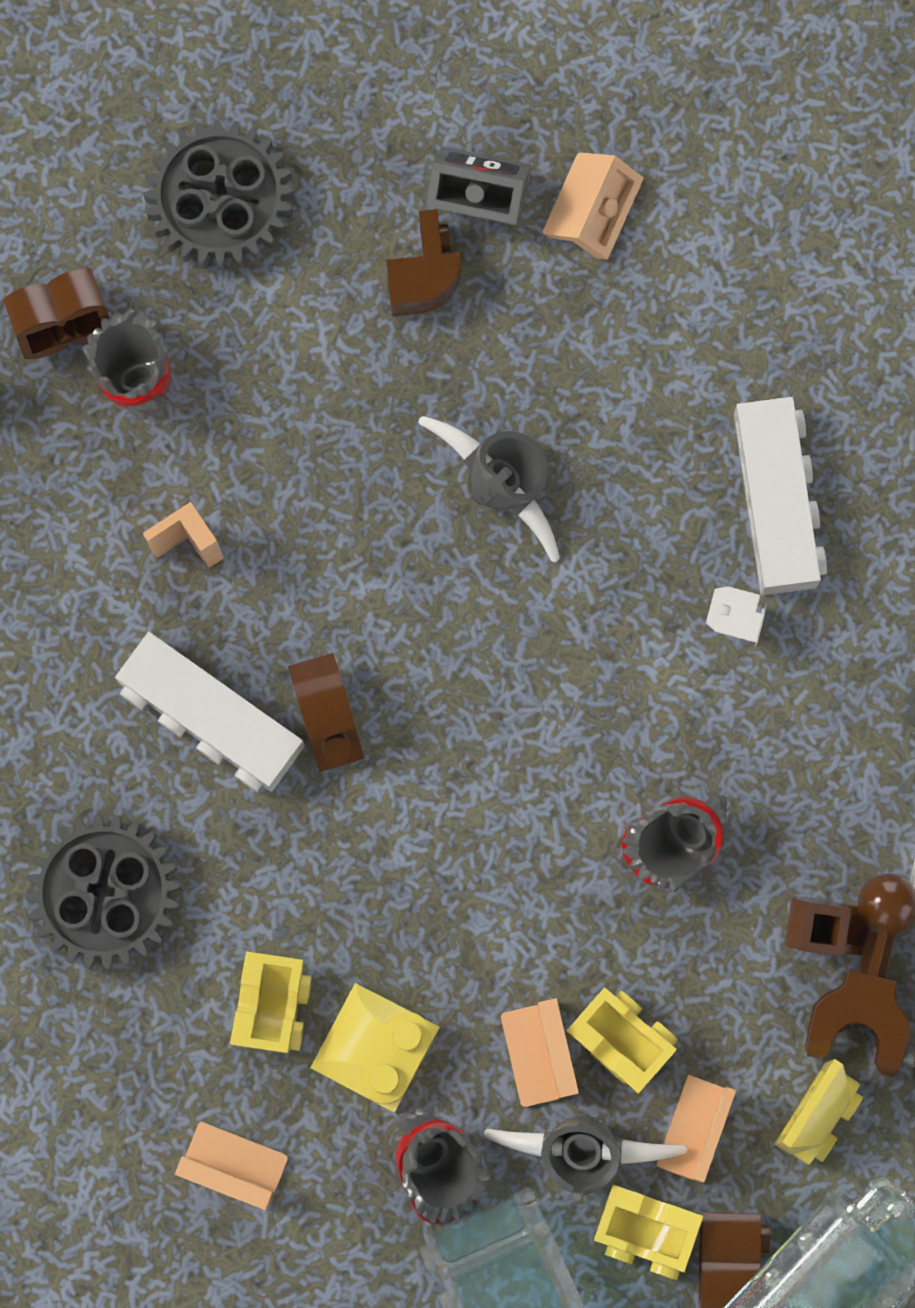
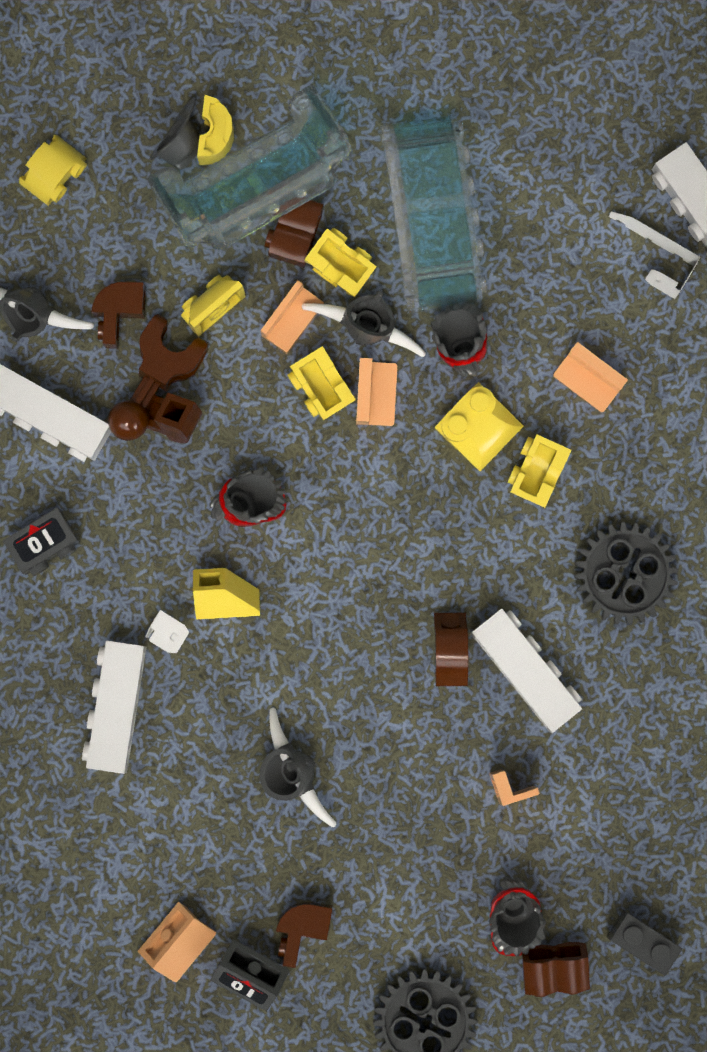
camera: 165 degrees left, 5 degrees up
(672, 694) = (223, 595): none -> light yellow slope

